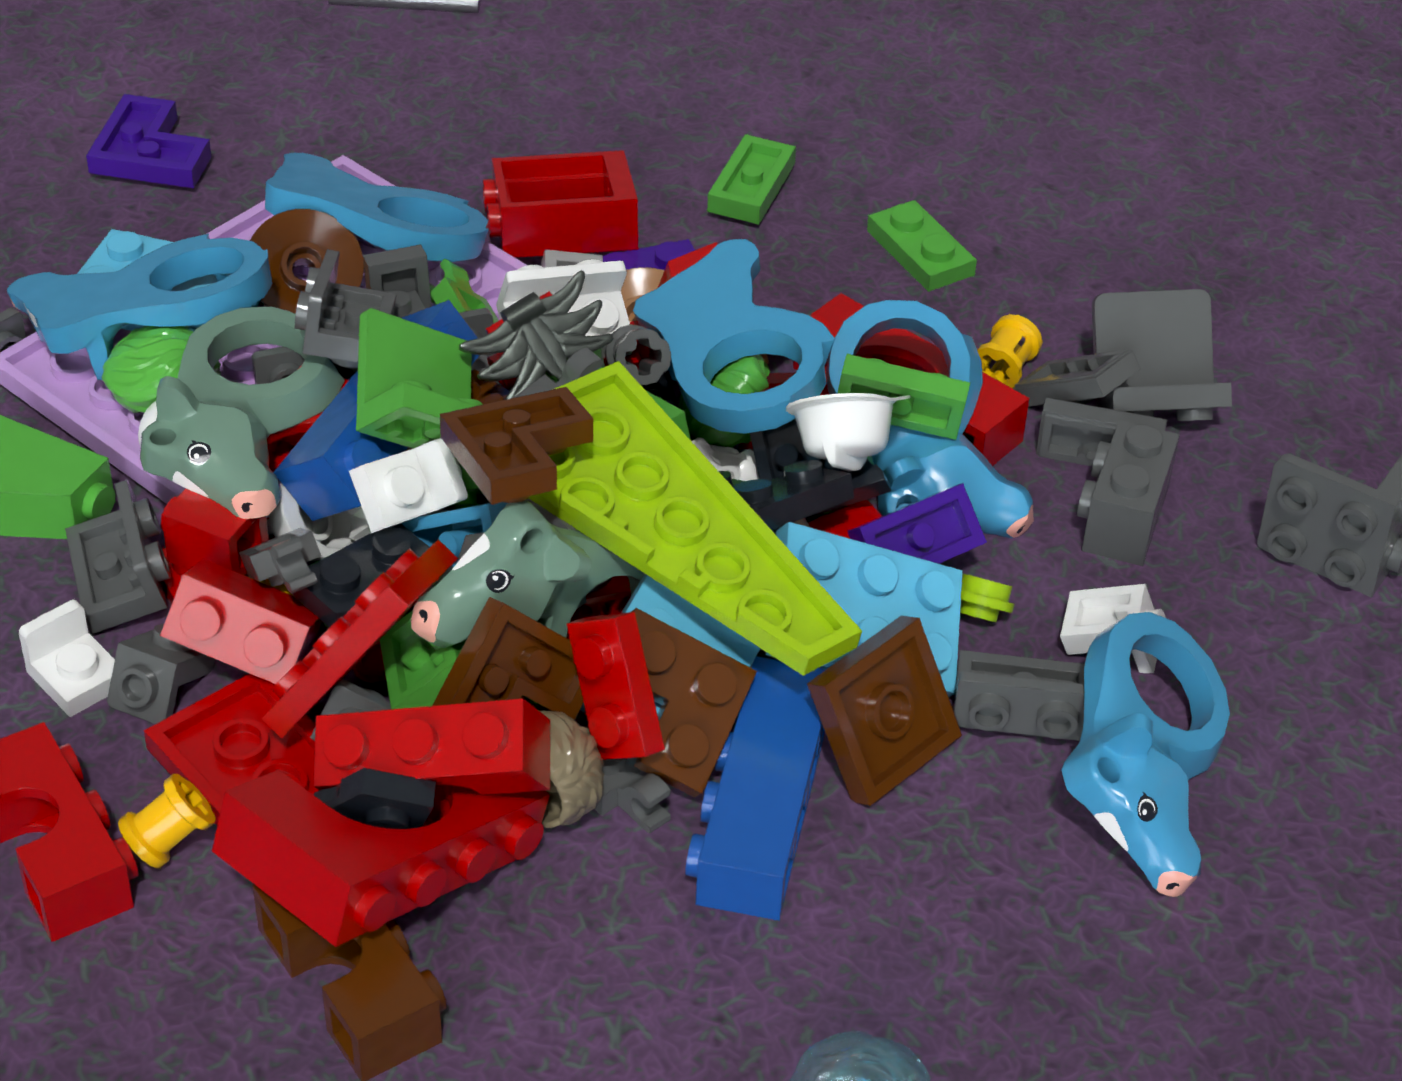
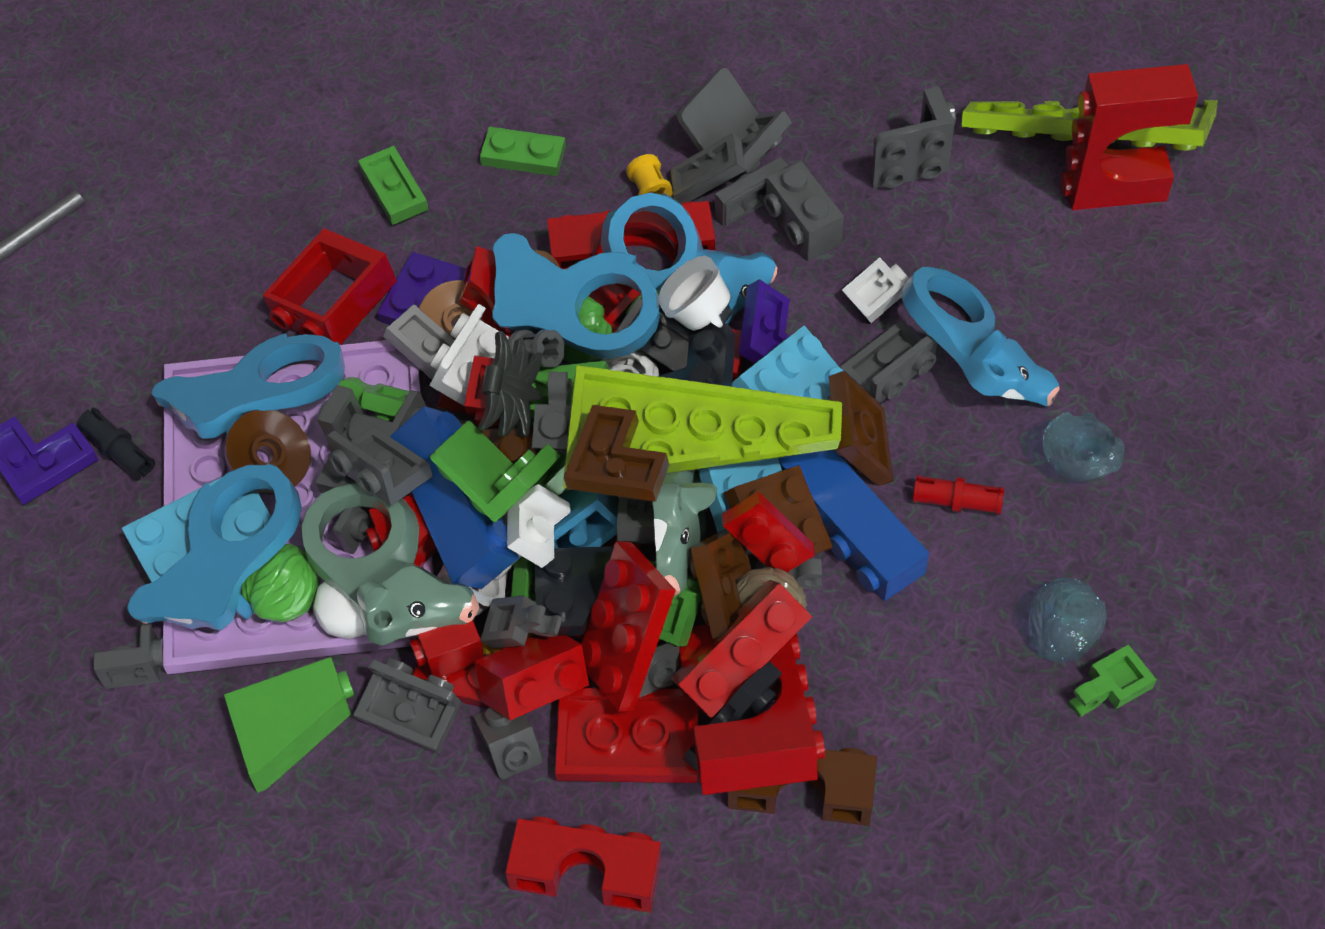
camera: 45 degrees left, 15 degrees up
(66, 658) = (459, 778): white bracket -> none
(166, 821) = (634, 803): yellow bush -> none
(219, 182) = (115, 443): none -> black pin
(919, 876) = (958, 494): none -> red pin
(934, 400) = (697, 242): bright green plate -> none
(984, 598) = (813, 322): lime plate -> none
(1126, 948) = (1082, 447): none -> clear light blue hair

